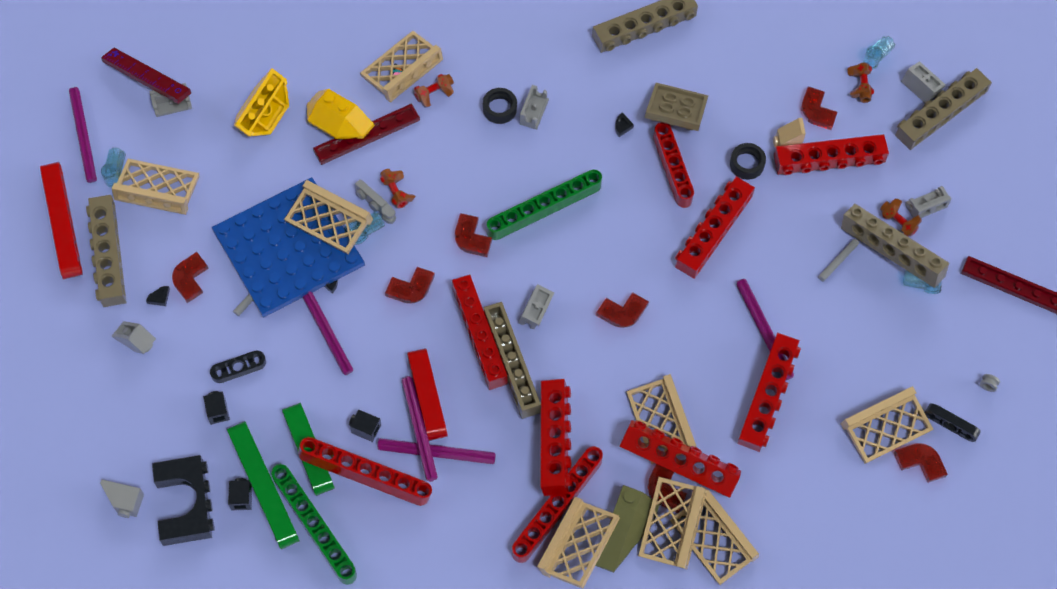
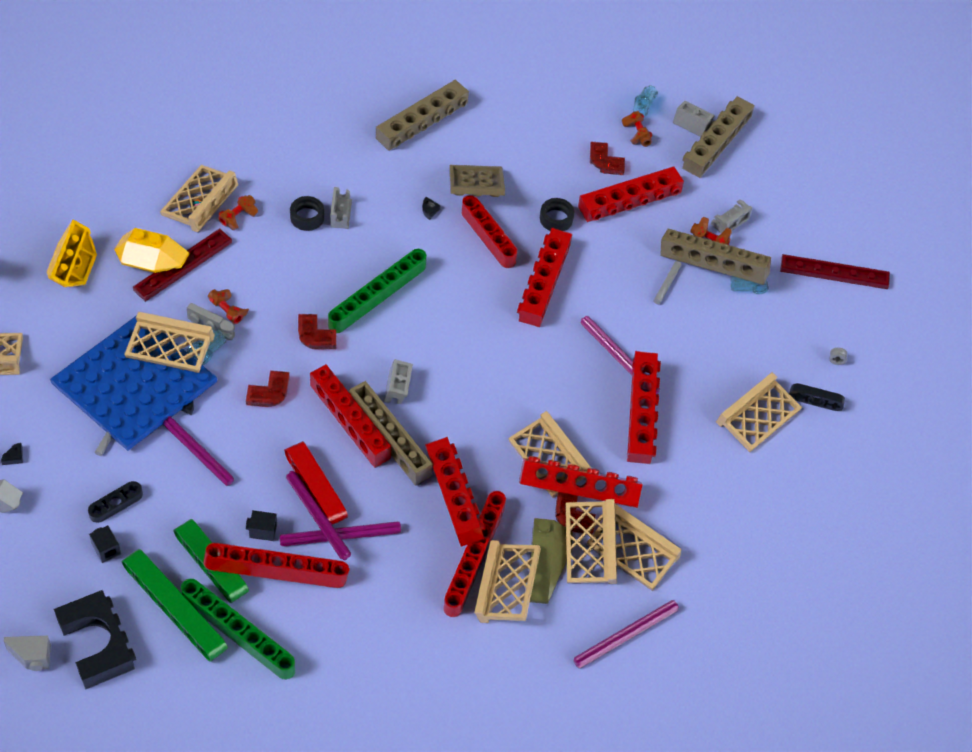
camera: 20 degrees left, 10 degrees down
(184, 276) = (35, 430): clear red plate -> none
(240, 494) = (153, 619): black brick -> none
(623, 316) = (483, 372): clear red plate -> none
(790, 133) = (590, 181): tan slope -> none
(924, 456) = (802, 433): clear red plate -> none

